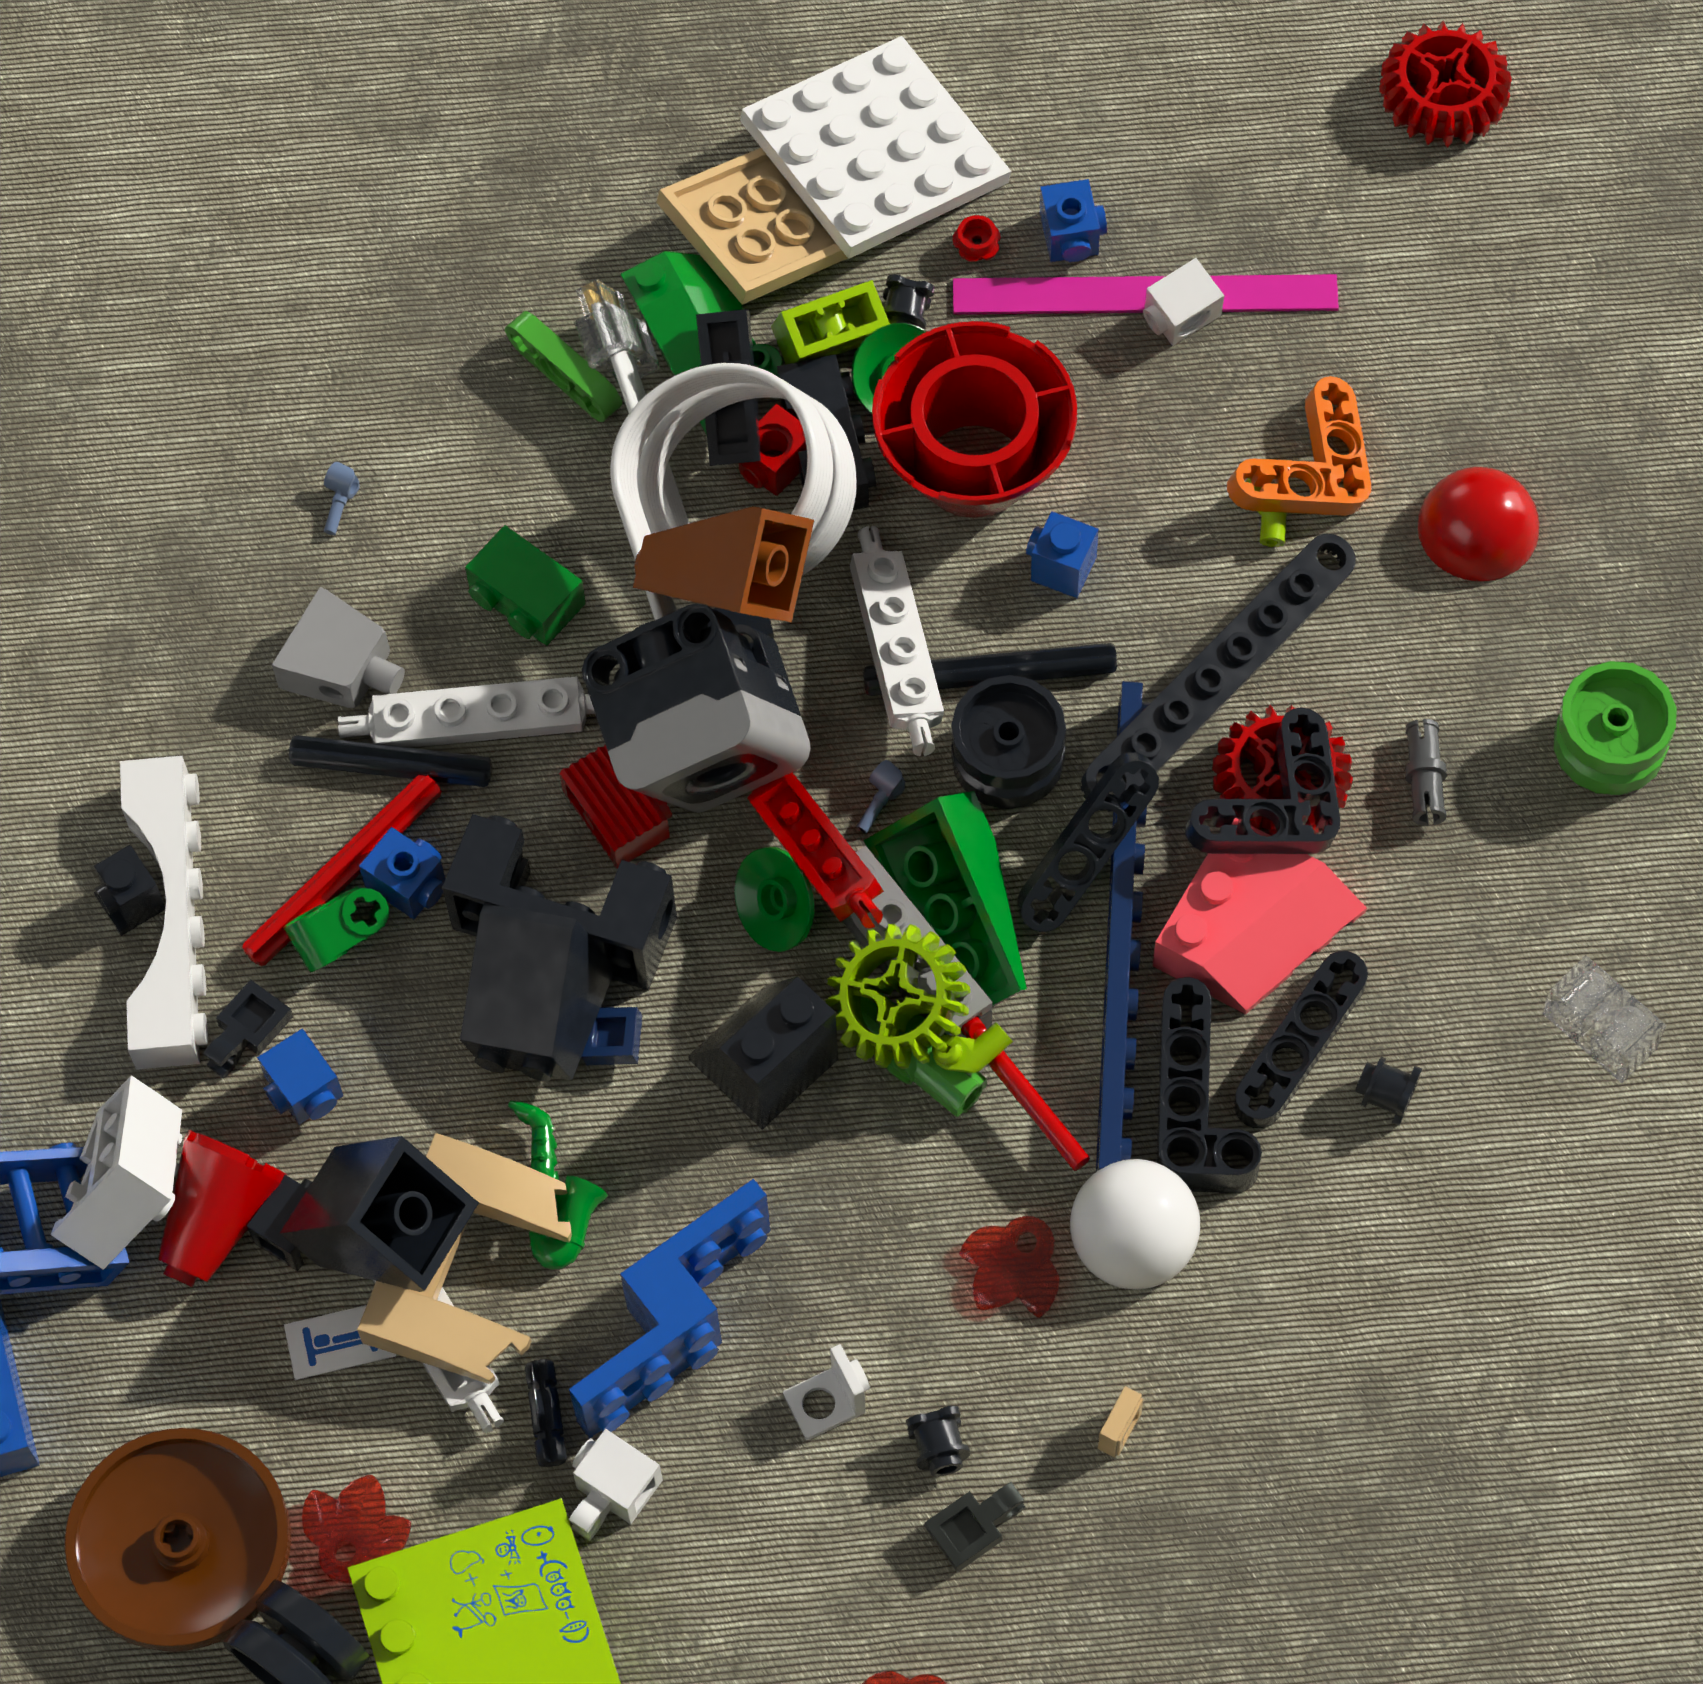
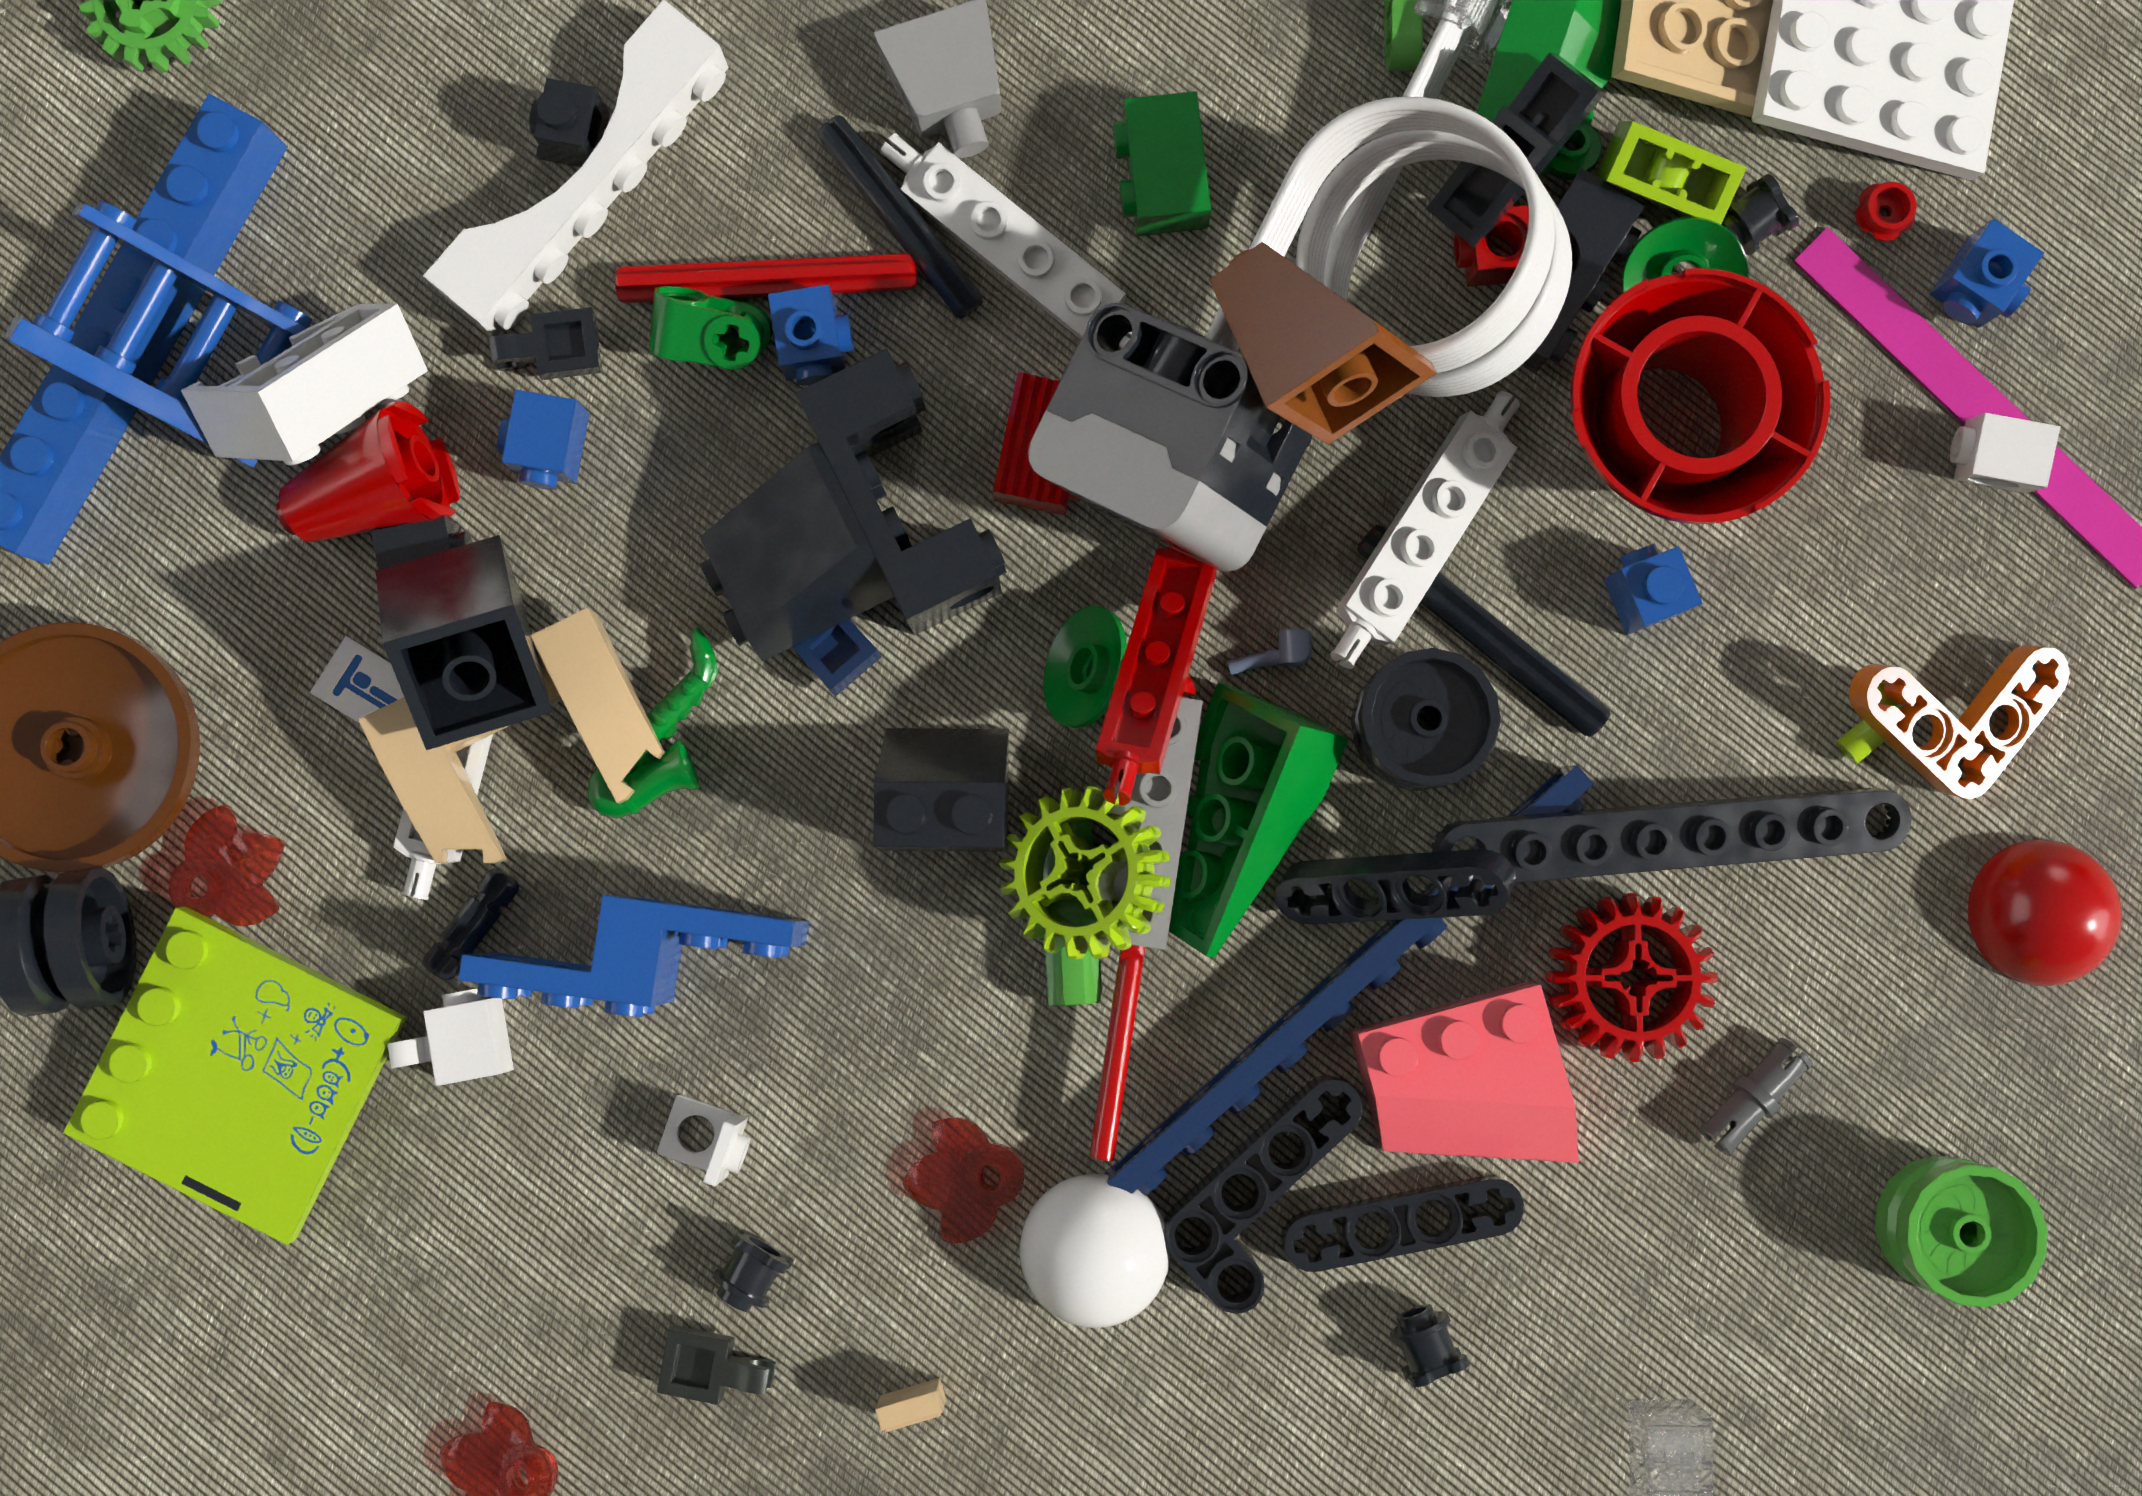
camera: 40 degrees right, 20 degrees up
(972, 1054) = (1106, 980): lime arm -> none
(1287, 814) = (1589, 1040): black beam -> none

